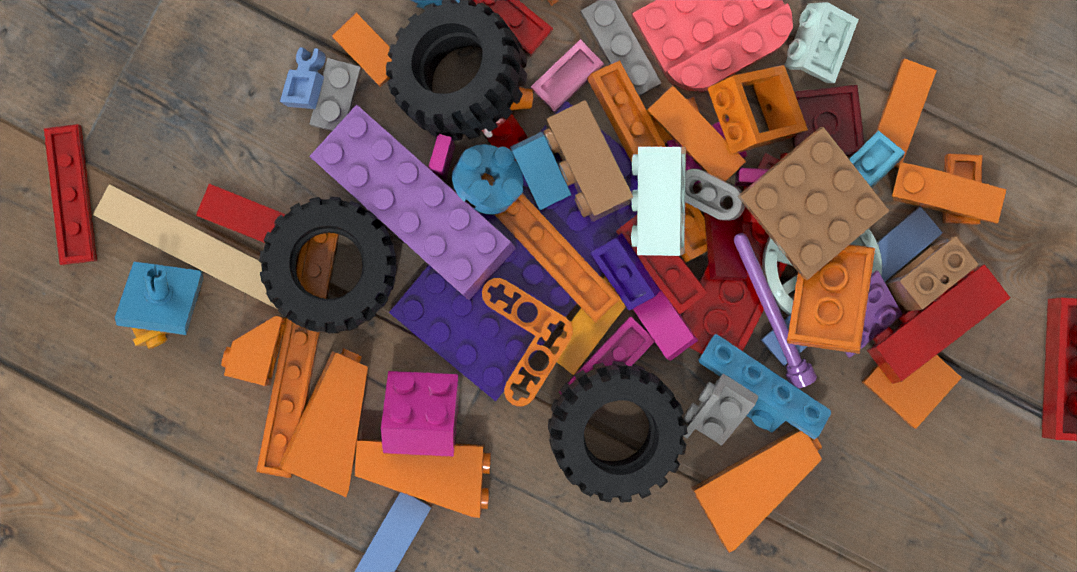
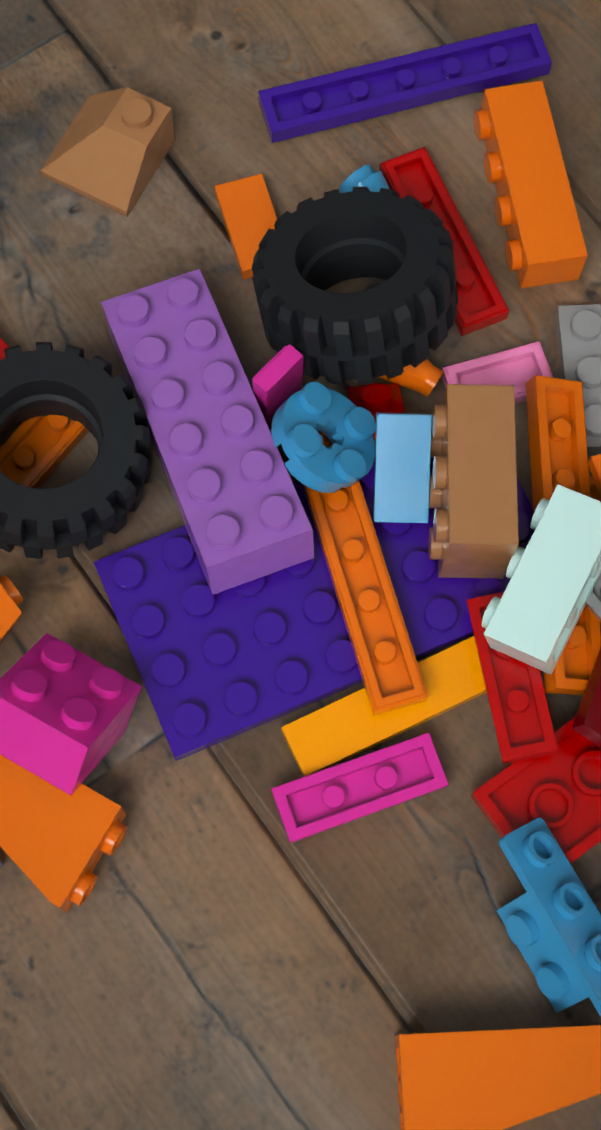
camera: 20 degrees right, 15 degrees down
(253, 43) = (112, 148): none -> medium nougat slope
(305, 83) = (147, 224): medium blue plate -> none
(336, 94) = (187, 247): light grey plate -> none
(537, 327) = (289, 683): orange beam -> none
(625, 271) = (452, 662): dark purple plate -> none
(643, 468) = (343, 962): black tyre -> none
(665, 325) = (473, 765): dark pink tile -> none
(720, 409) = (497, 933): light grey bracket -> none

